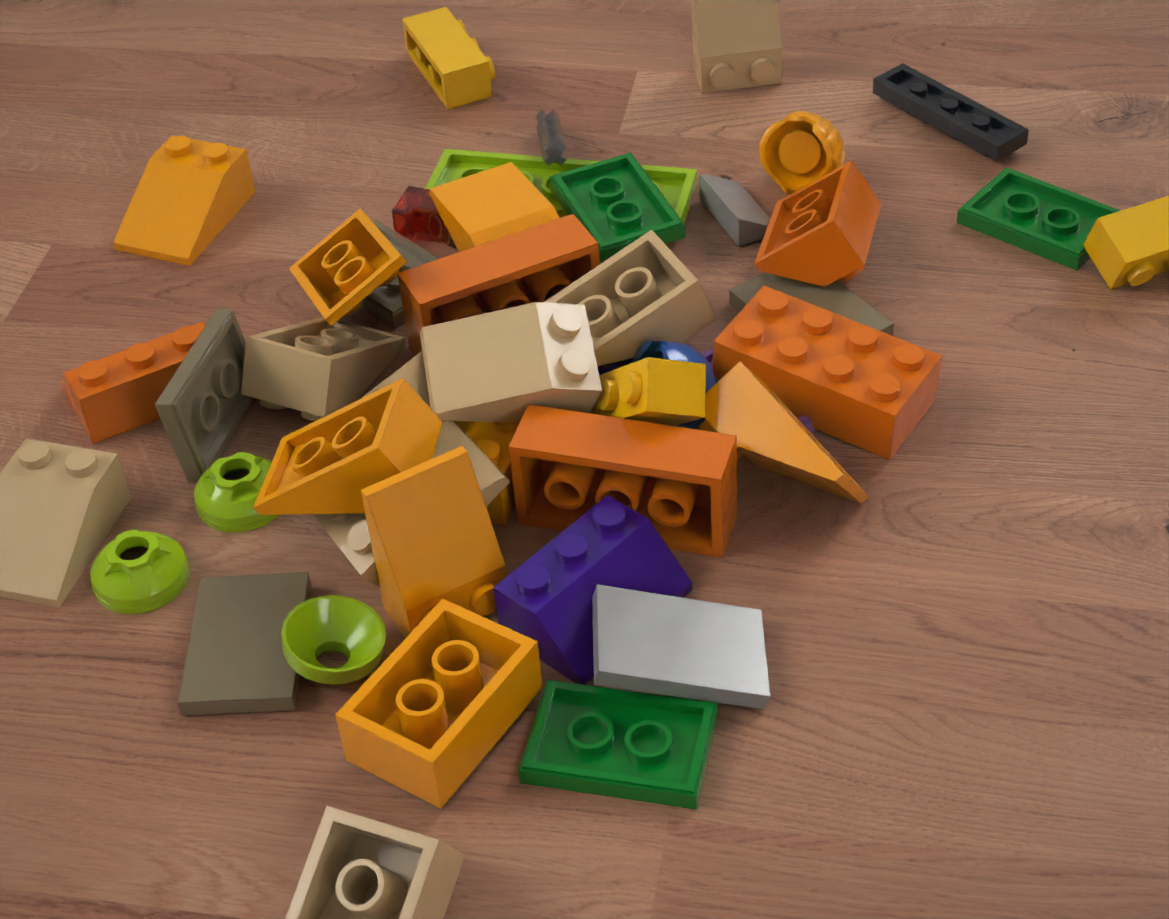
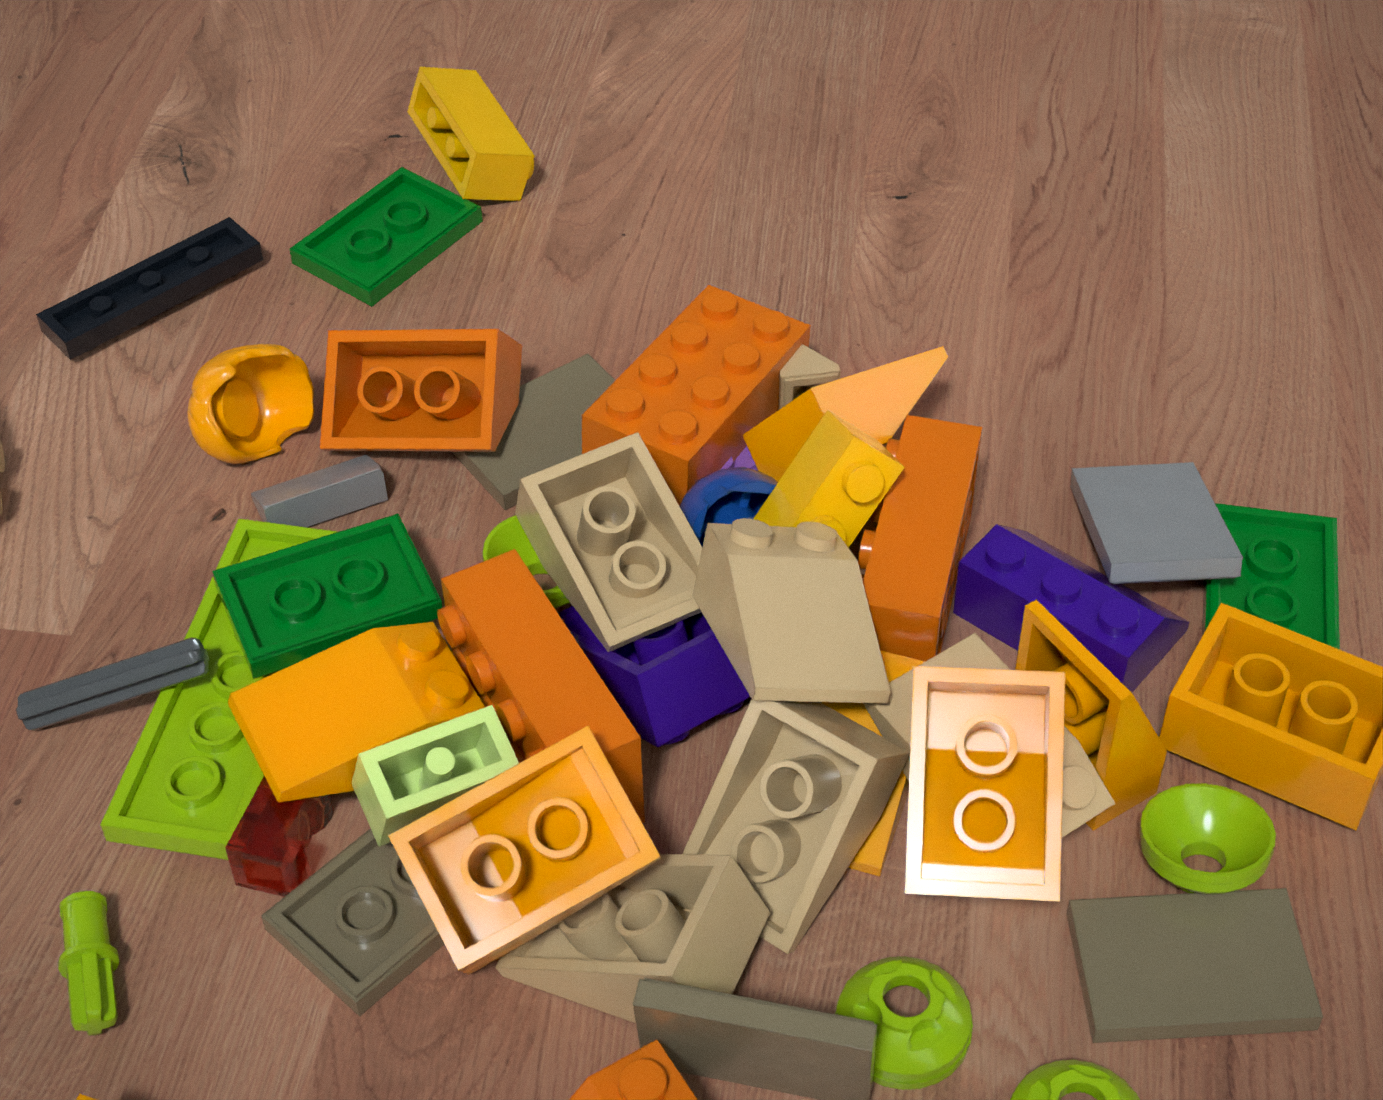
camera: 95 degrees left, 5 degrees up
(360, 164) = (88, 962): none -> lime axle
(425, 231) = (429, 769): none -> yellowish green brick
(856, 439) = (803, 372): none -> tan slope

